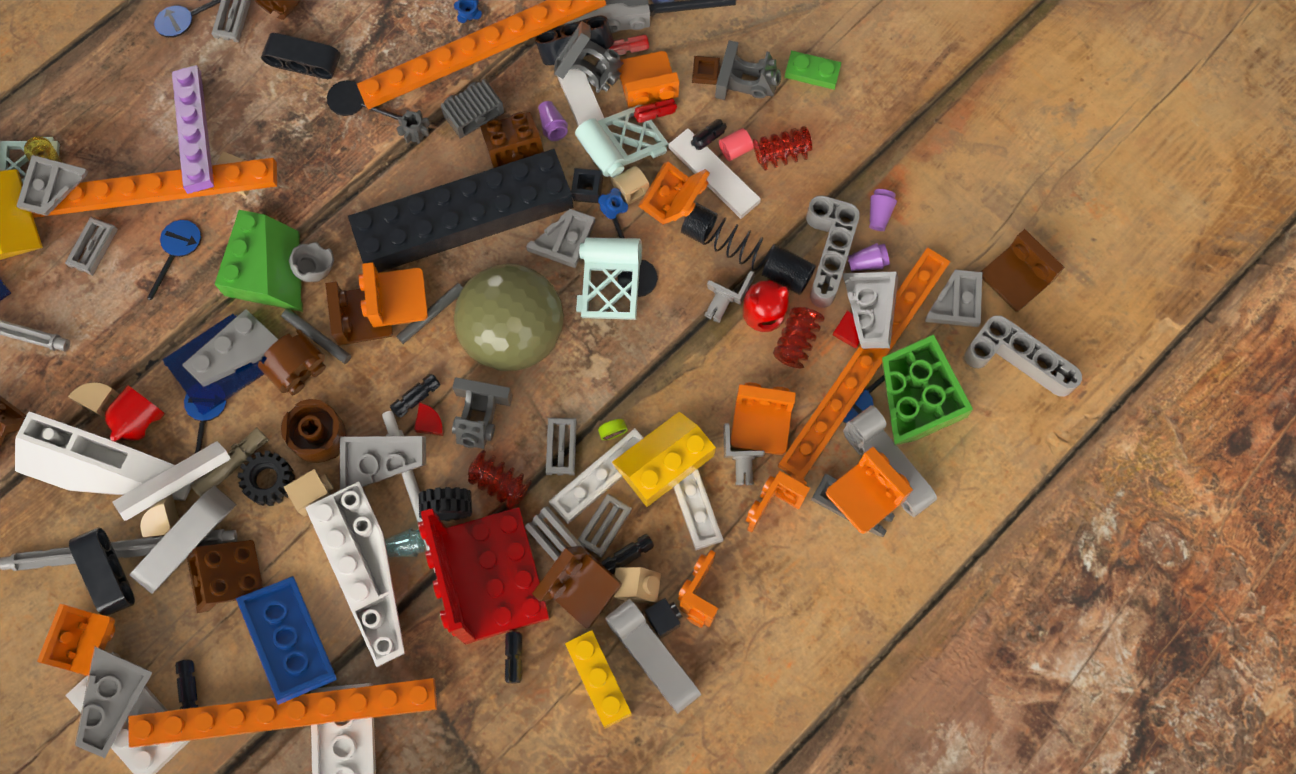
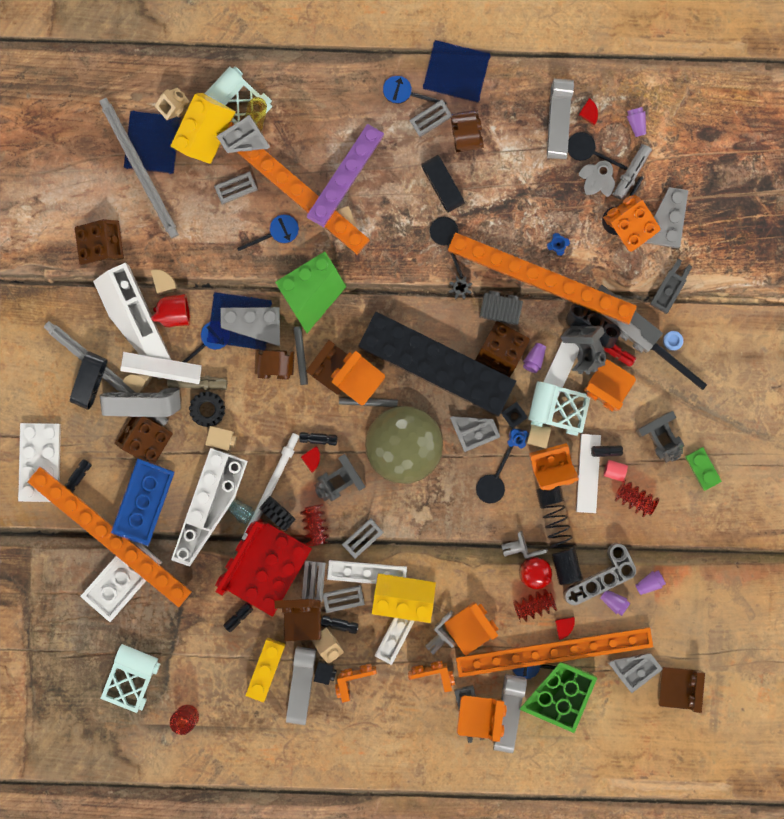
camera: 45 degrees right, 15 degrees up
(73, 639) = (49, 404): orange bracket -> none
(108, 700) = (37, 451): light grey wing -> none
(303, 420) = (239, 410): reddish brown brick -> none
(311, 262) = (335, 315): light grey hair -> none
(379, 458) = (267, 454): light grey wing -> none
(606, 256) = (486, 465): light aqua piece -> none
(612, 429) = (395, 557): lime tile -> none
(650, 111) = (591, 406): red piece -> none
(705, 70) = (647, 410): reddish brown tile -> none
(873, 306) = (587, 630): light grey wing -> none
(1026, 360) = (633, 734): light grey beam -> none

